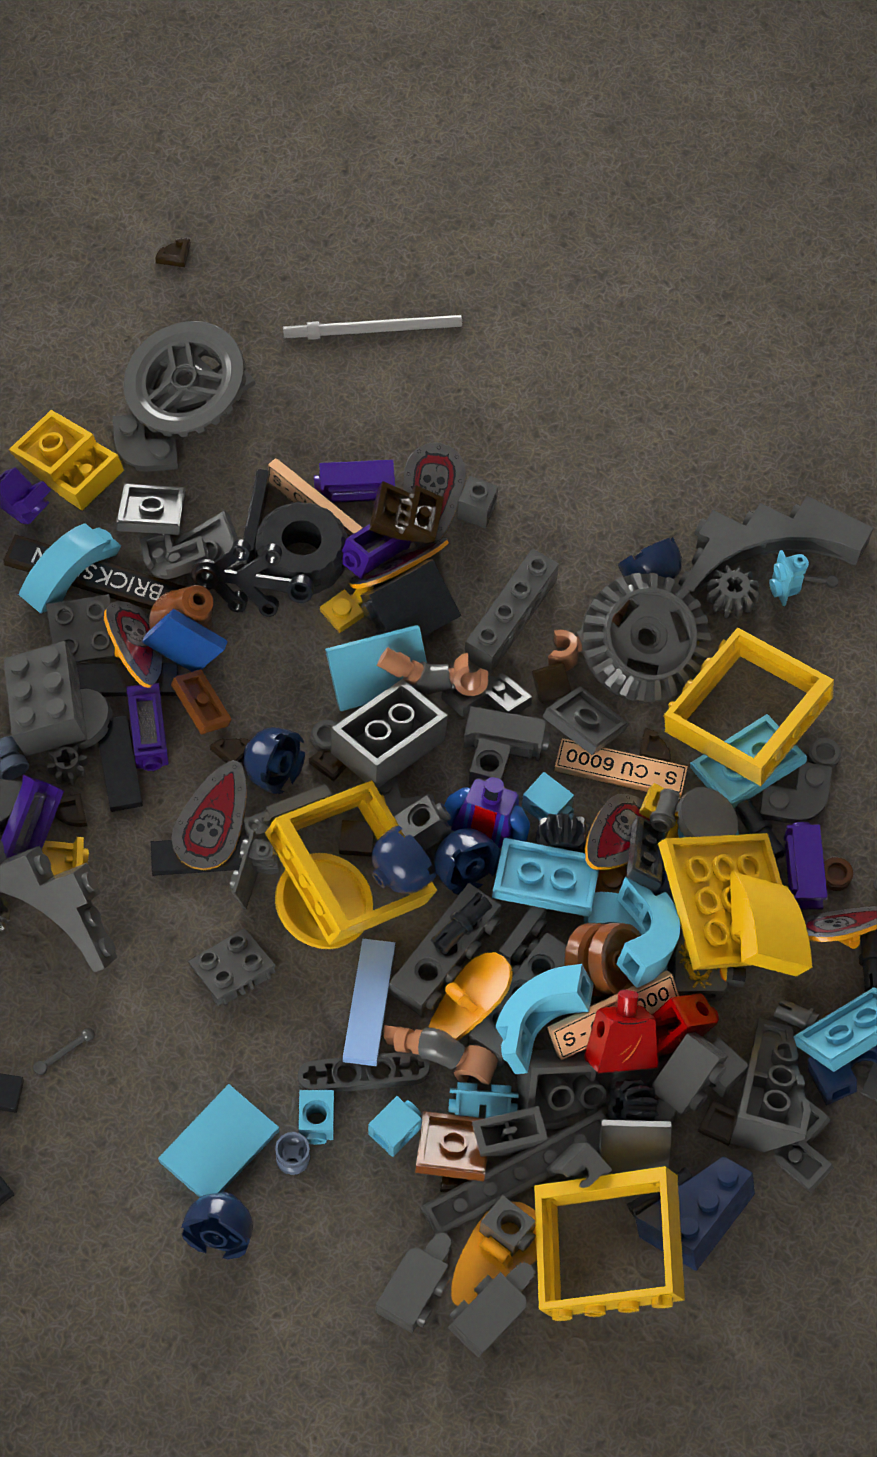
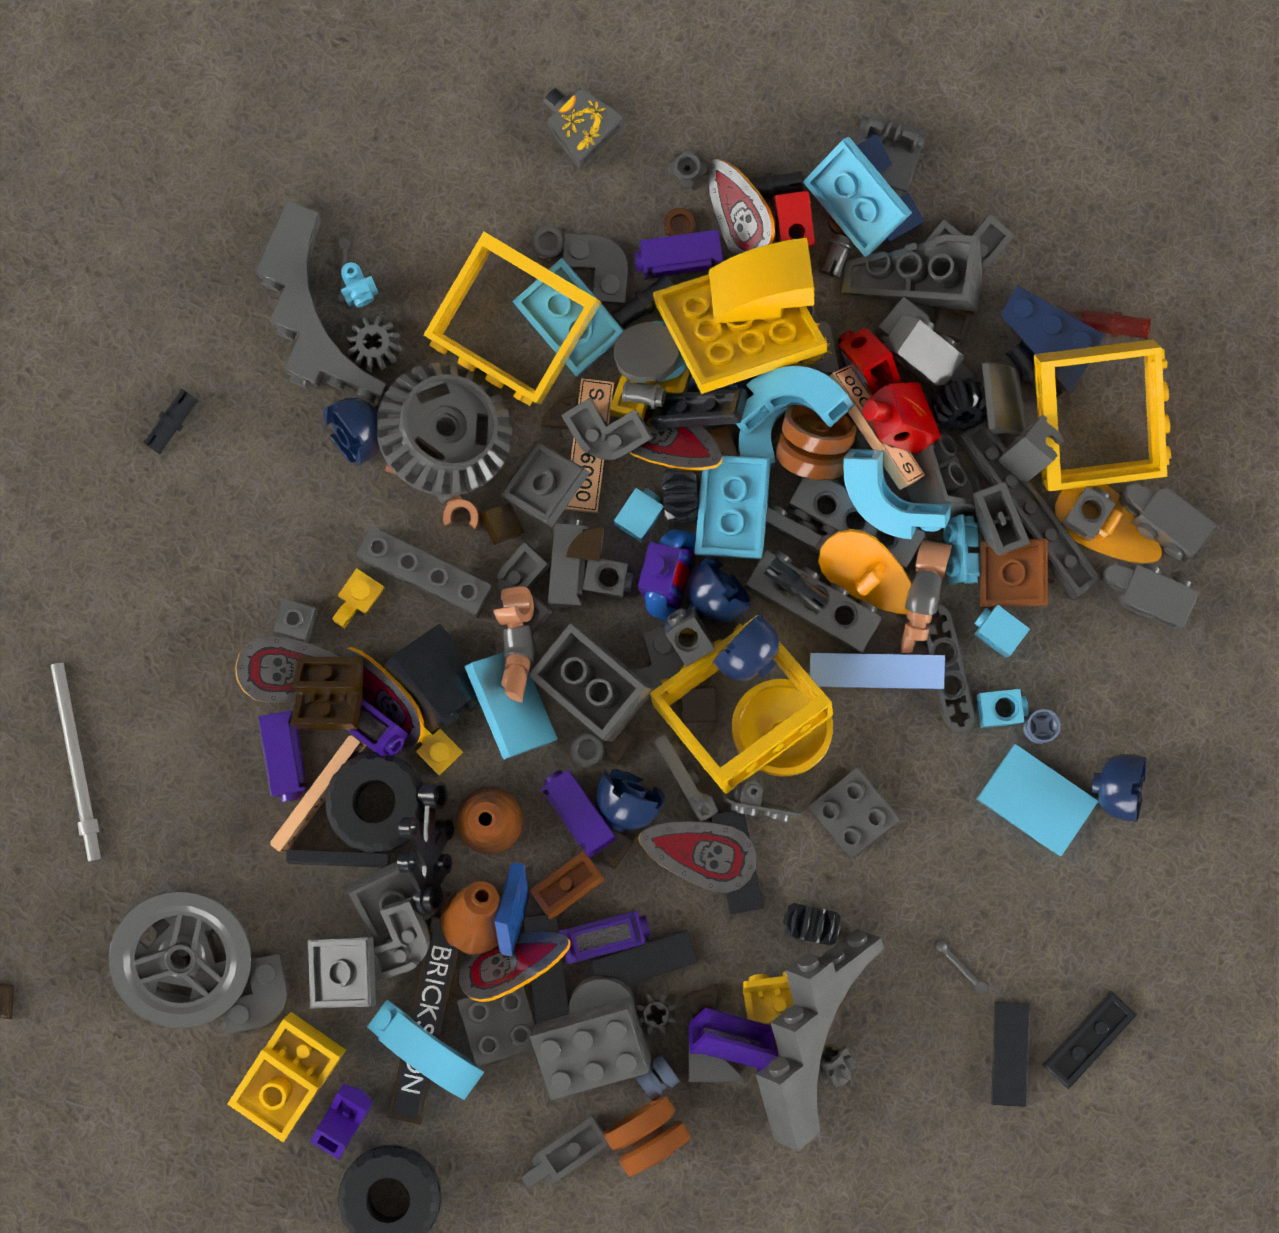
camera: 95 degrees left, 20 degrees up
(128, 907) = (811, 924): none -> black gear
(271, 641) = (505, 824): none -> dark orange cone
(279, 709) = (578, 812): none -> dark purple window
(496, 559) = (359, 595): none -> yellow plate
(521, 743) = (587, 545): none -> dark brown tile
(625, 772) = (605, 440): none -> dark grey plate
(672, 423) = (170, 421): none -> black pin
(708, 1287) = (1117, 324): none -> clear red pin
(833, 971) = (793, 211): none -> red torso

